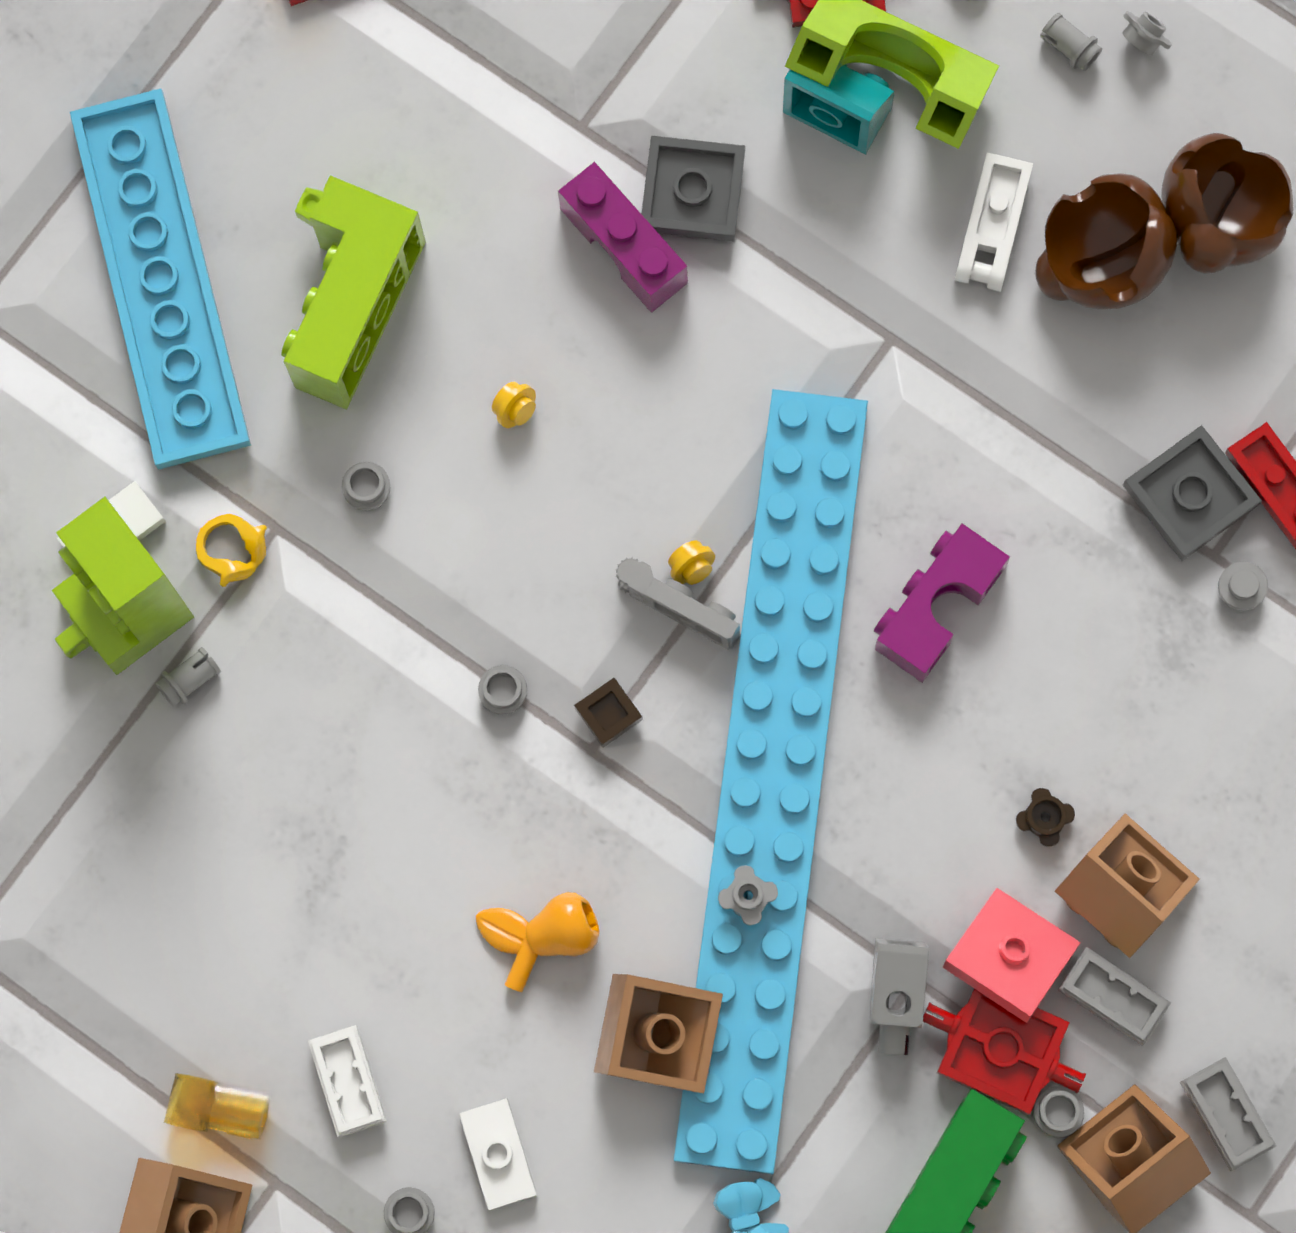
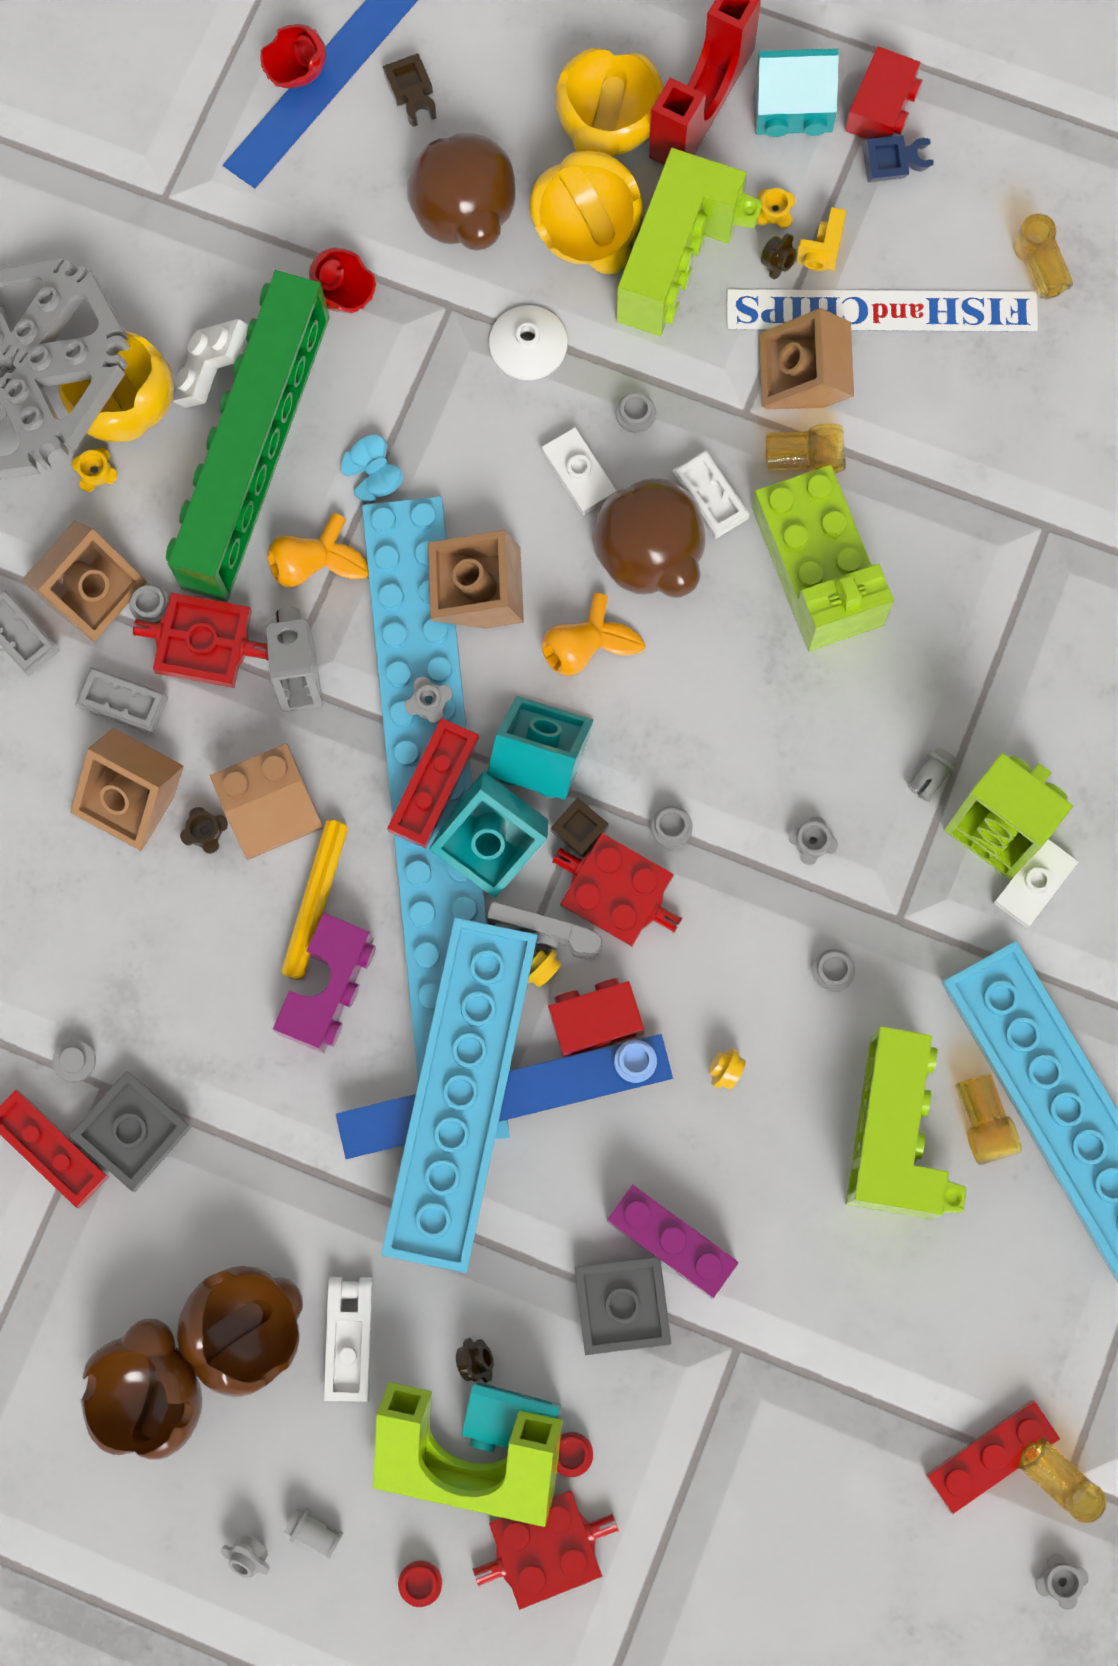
camera: 165 degrees right, 0 degrees up
(233, 570) = (916, 903): yellow piece -> none
(239, 959) = (821, 558): none -> lime hinge
(248, 275) = (990, 1131): none -> clear yellow piece
(333, 630) = (817, 829): none -> light grey plate
(433, 1037) = (651, 538): none -> reddish brown piece
(584, 632) = (617, 890): none -> red plate
(613, 430) = (635, 1061): none -> light blue plate
(629, 816) = (539, 747): none -> teal slope
(645, 492) = (595, 1017): none -> red brick
(711, 719) = (490, 835): none -> teal slope
(765, 428) = (526, 1092): none -> blue sticker
(765, 793) = (433, 783): none -> red plate
(775, 55) = (574, 1454): none -> red plate
(813, 438) = (459, 1096): none -> medium azure plate
(863, 168) = (475, 1361): none -> dark brown plate
(866, 1120) = (298, 558): none -> light orange piece
(932, 705) = (314, 898): none -> yellow axle
(965, 830) = (266, 801): none -> medium nougat slope
(1011, 955) = (208, 710): coral plate -> none

